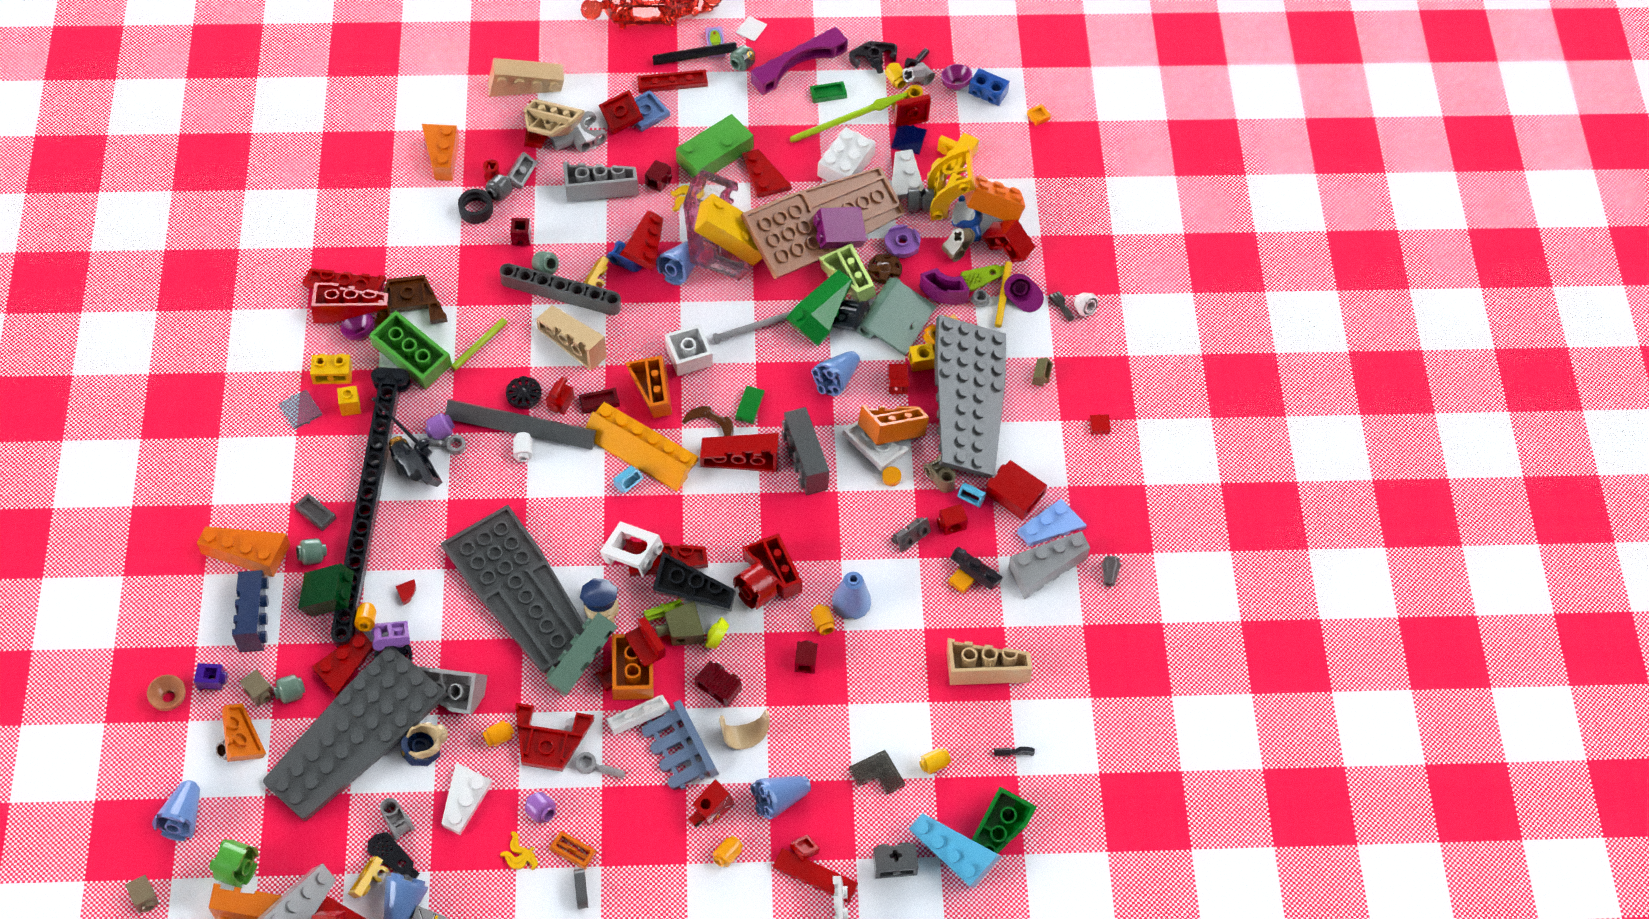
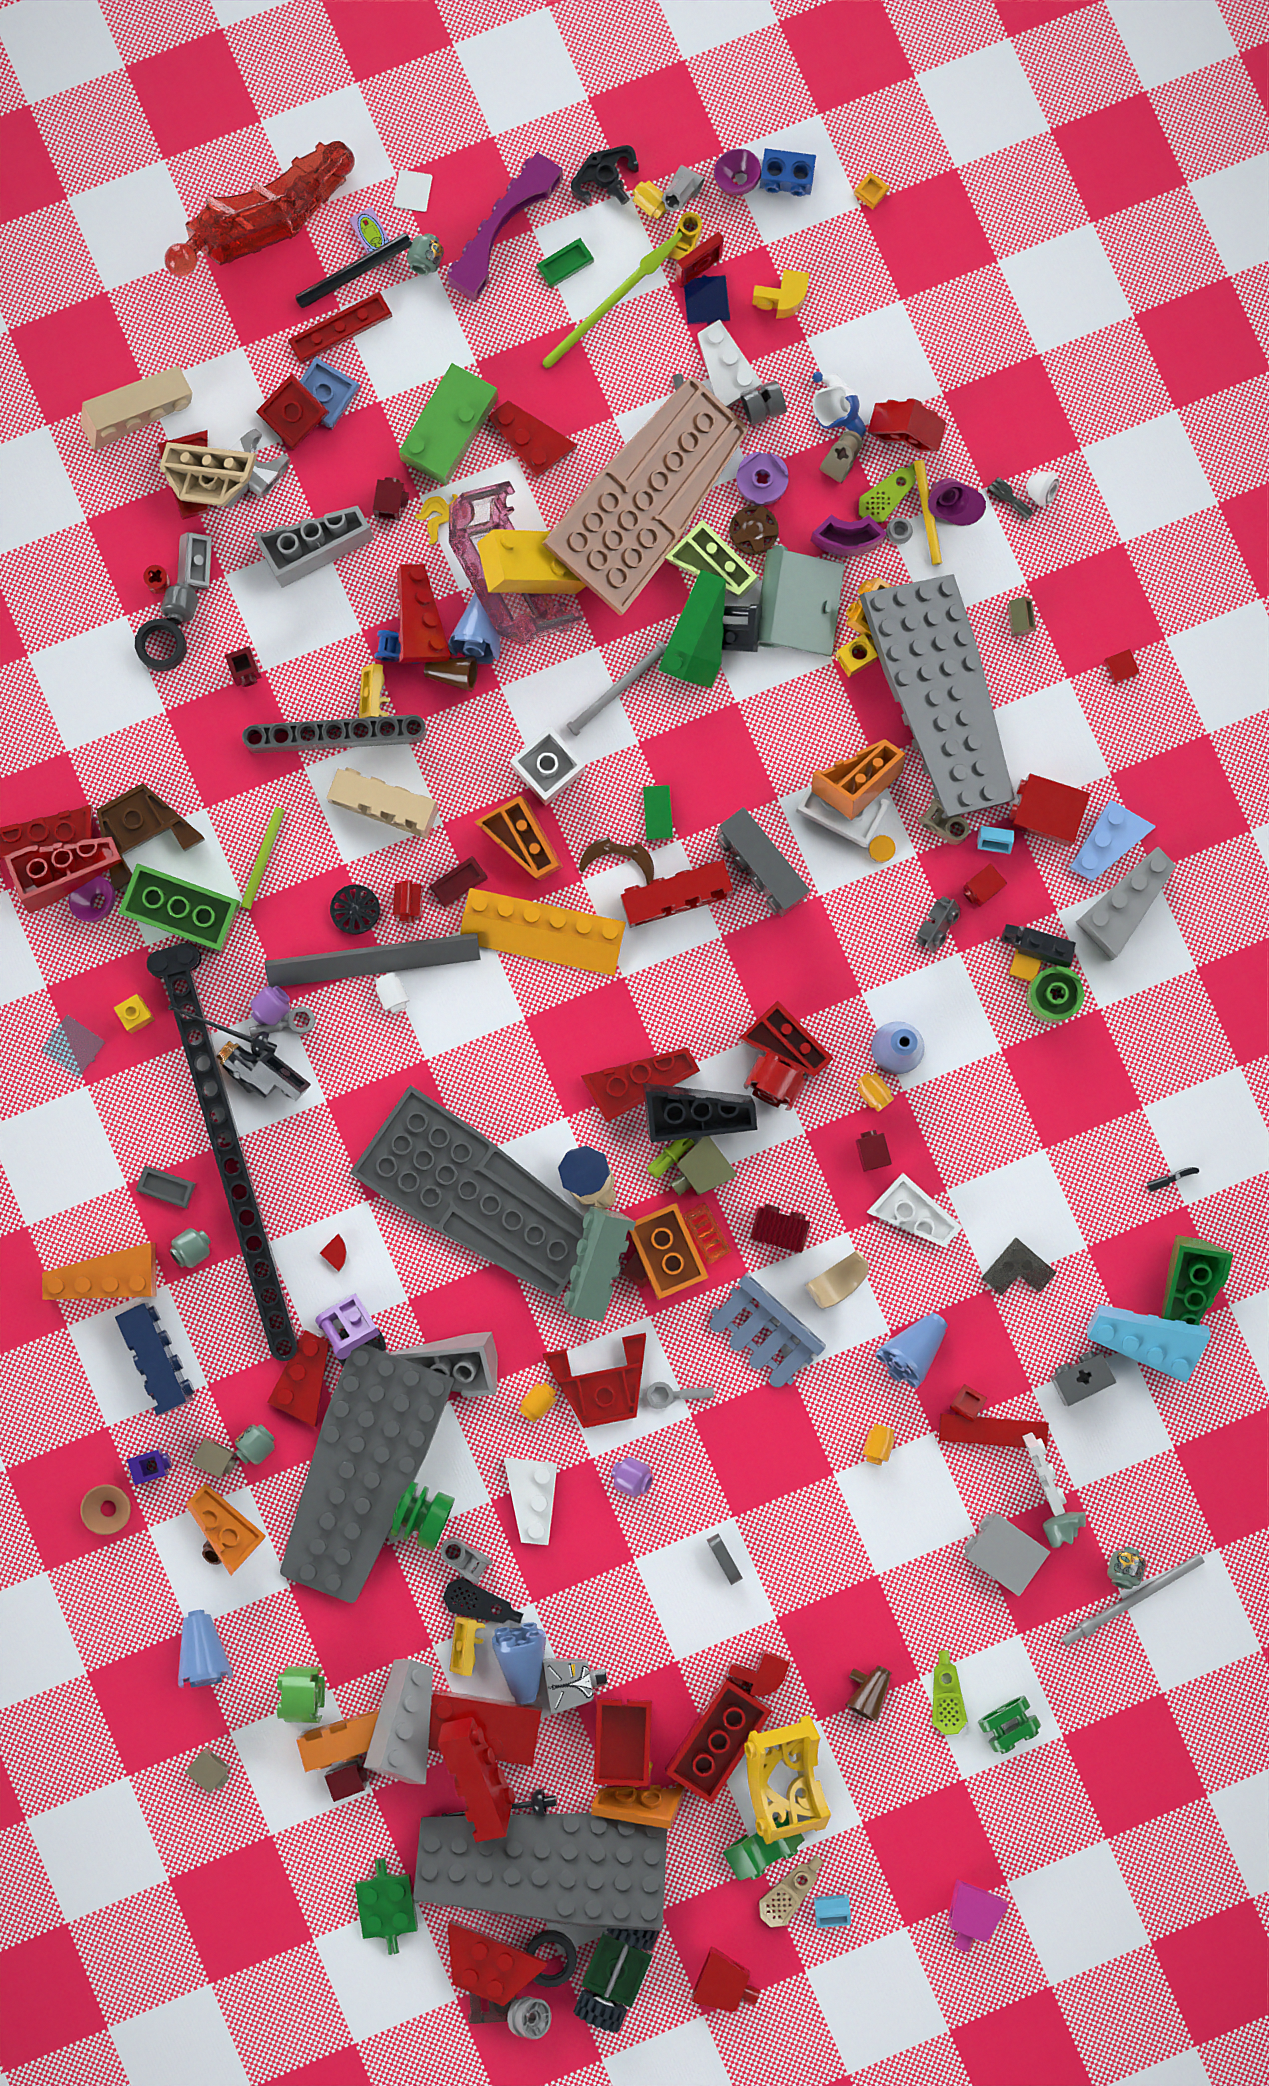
camera: 25 degrees left, 25 degrees up
(326, 590) = (238, 1299): dark green brick -> none
(331, 369) = (87, 973): yellow brick -> none
(365, 617) = (303, 1312): light orange brick -> none
(380, 774) = (422, 1516): none -> green wheel
(423, 743) = (454, 1451): piece -> none
(442, 149) = (72, 570): orange wedge -> none
(519, 862) = (635, 1550): yellow piece -> none
(545, 262) = (297, 702): sand green head -> none
(592, 852) = (715, 1515): orange tile -> none
(613, 547) = (571, 1086): white panel -> none
(627, 479) = (548, 987): medium azure piece -> none
(638, 714) = (698, 1308): white tile -> none
(646, 643) = (674, 1224): red panel -> none
(654, 280) = (454, 672): none -> reddish brown piece
(669, 653) = (693, 1214): none -> clear orange slope
(716, 633) = (751, 1165): neon yellow hat -> none
(717, 801) = (841, 1386): red torso -> none
(819, 706) = (915, 1211): none -> white wing
(835, 373) = (755, 725): medium blue cone -> none
(840, 227) = (678, 502): magenta brick -> none
(846, 156) = (636, 372): white brick -> none
(898, 379) = (838, 701): red brick -> none
(913, 62) = (668, 162): black bar -> none
(935, 760) = (1082, 1230): yellow brick -> none
(957, 184) = (777, 367): yellow fence -> none
(974, 601) = (1069, 990): none -> bright green brick
(986, 664) = (1095, 1079): tan wedge -> none
(995, 199) = (868, 372): orange brick -> none
(1111, 568) = (1208, 881): dark grey cone -> none

